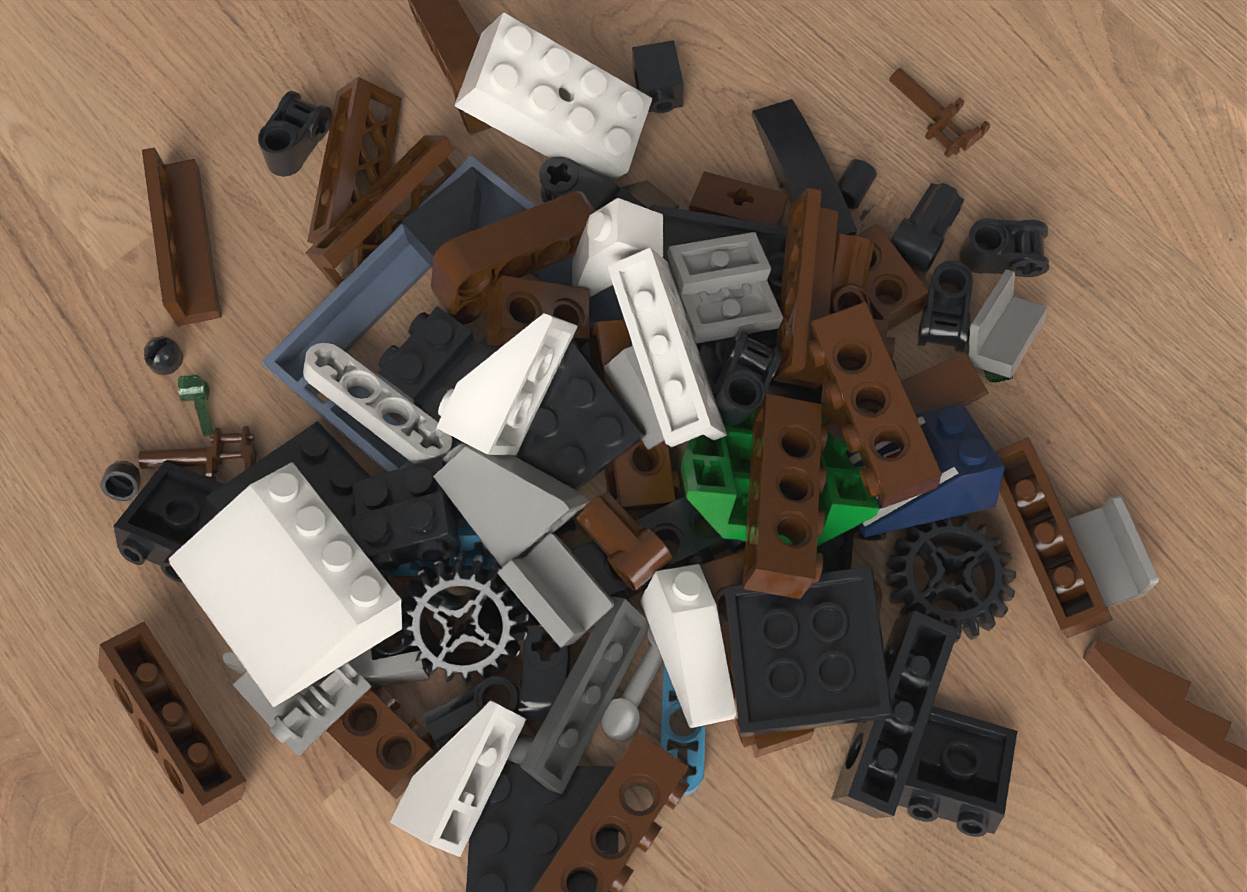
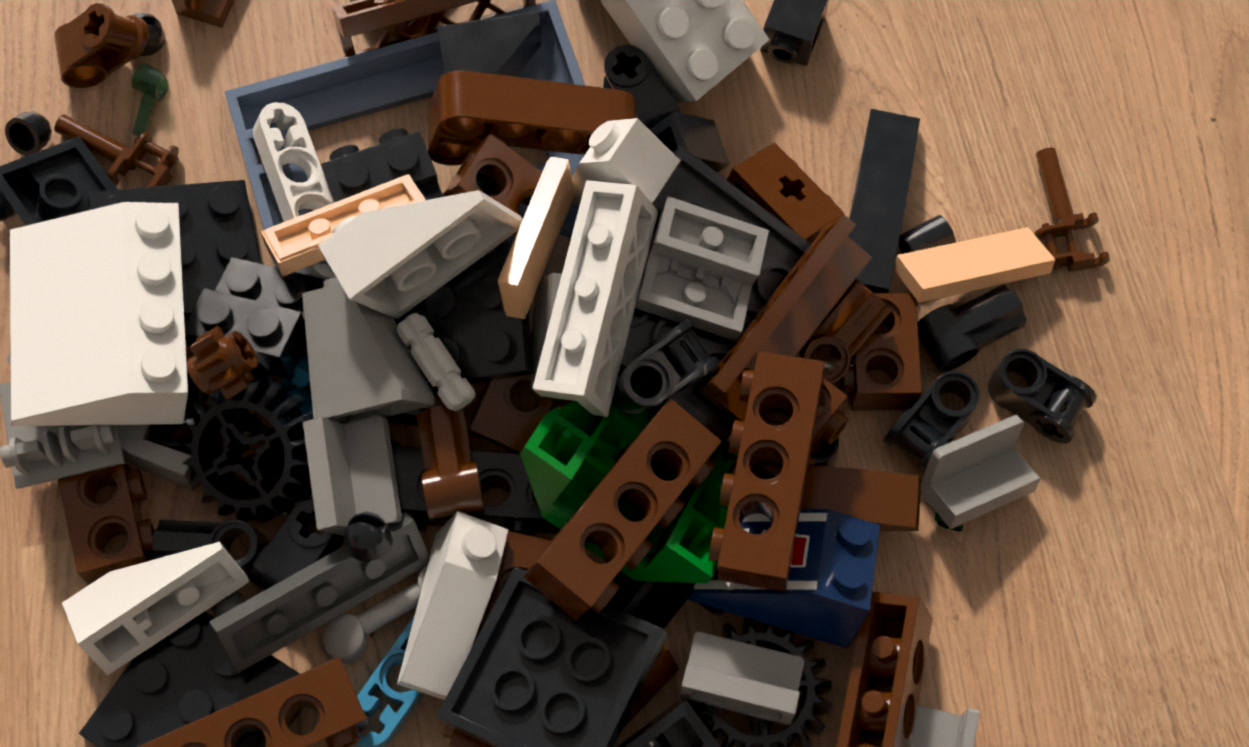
camera: 25 degrees right, 0 degrees up
(135, 381) = (98, 45): none -> reddish brown piece
(411, 562) = (222, 362): none -> reddish brown gear
(416, 422) = (296, 241): none -> light nougat tile
(570, 469) = (435, 362): none -> white axle
(590, 332) = (536, 238): none -> light nougat tile
(600, 630) = (368, 536): none -> black hinge
(902, 180) = (973, 264): none -> light nougat tile
(941, 571) = (742, 678): none -> light grey panel

